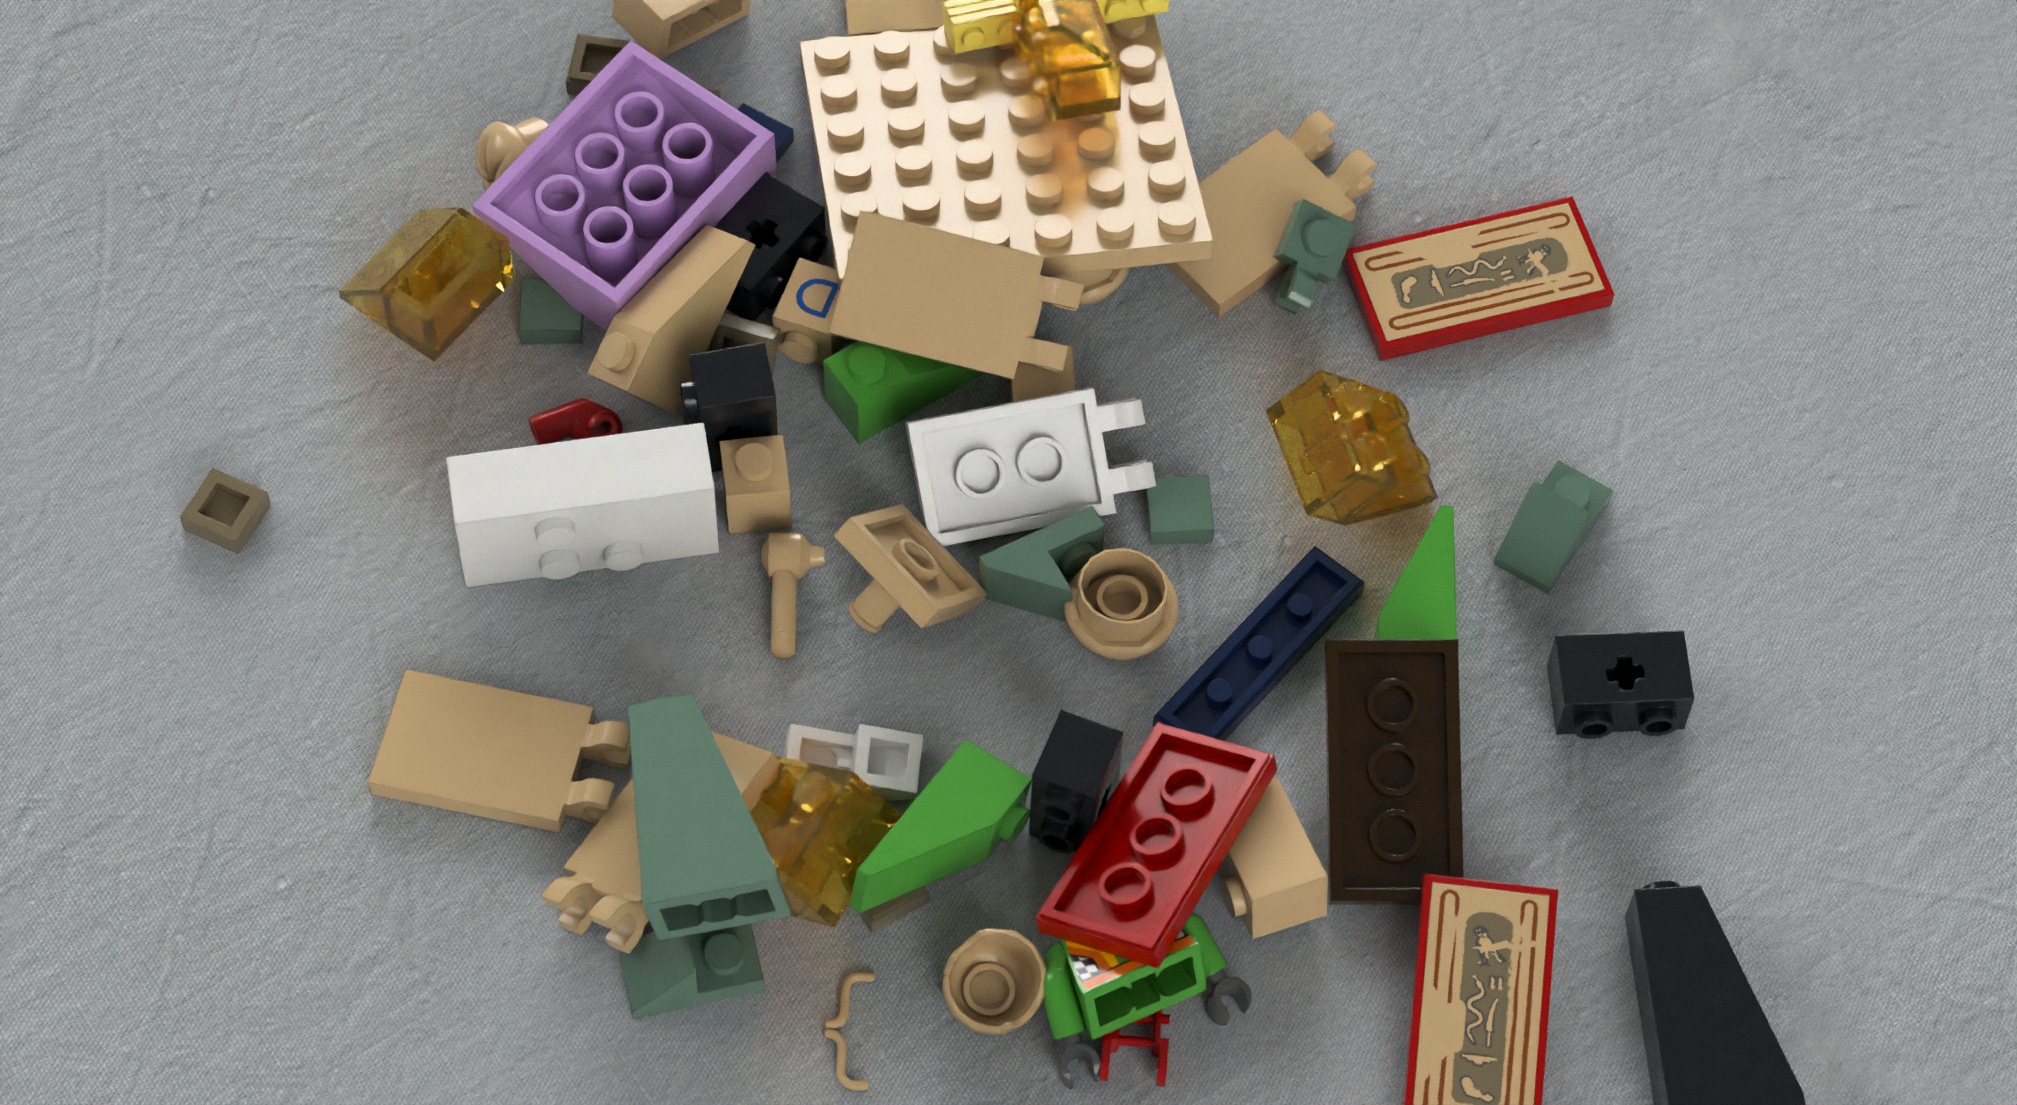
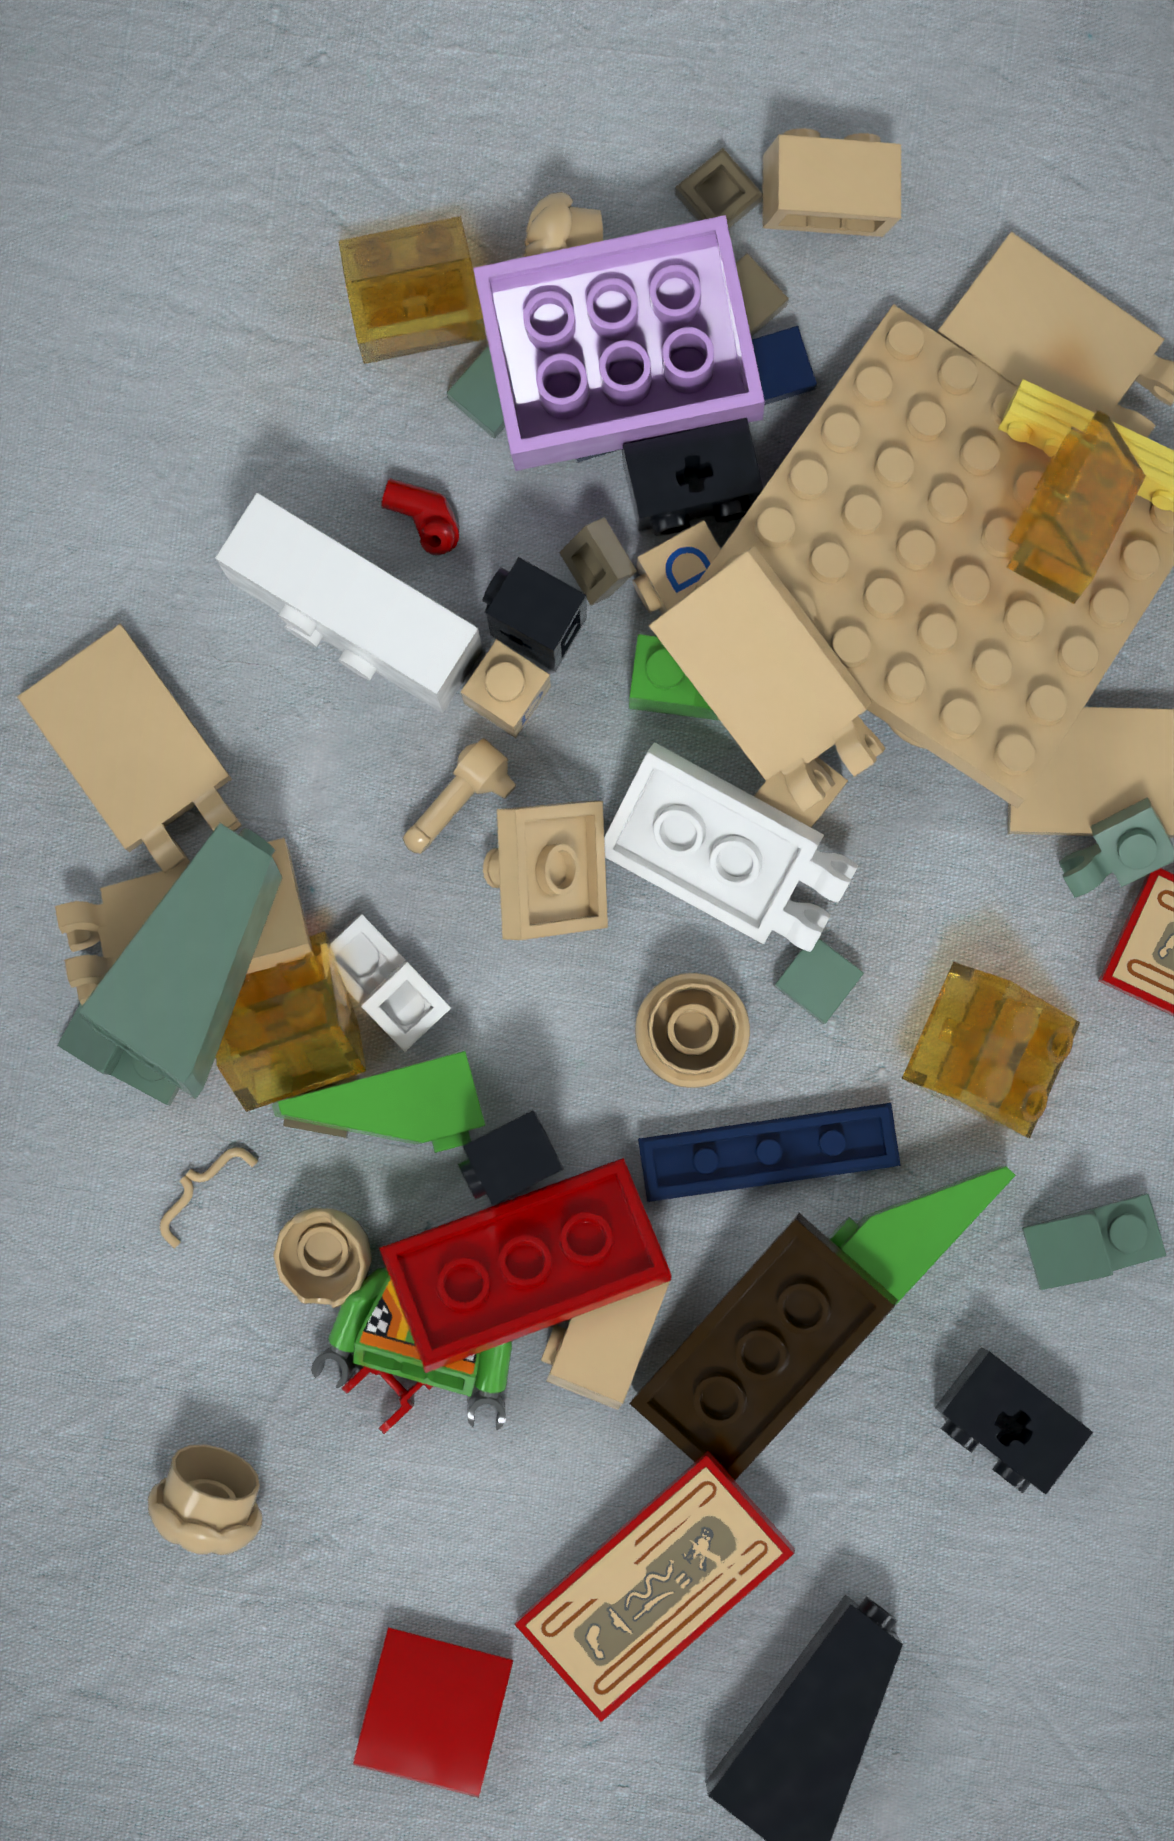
camera: 45 degrees right, 25 degrees up
(225, 511) = (102, 367): dark tan tile -> none
(672, 318) = (552, 497): tan slope -> none
(1032, 568) = (649, 937): sand green slope -> none

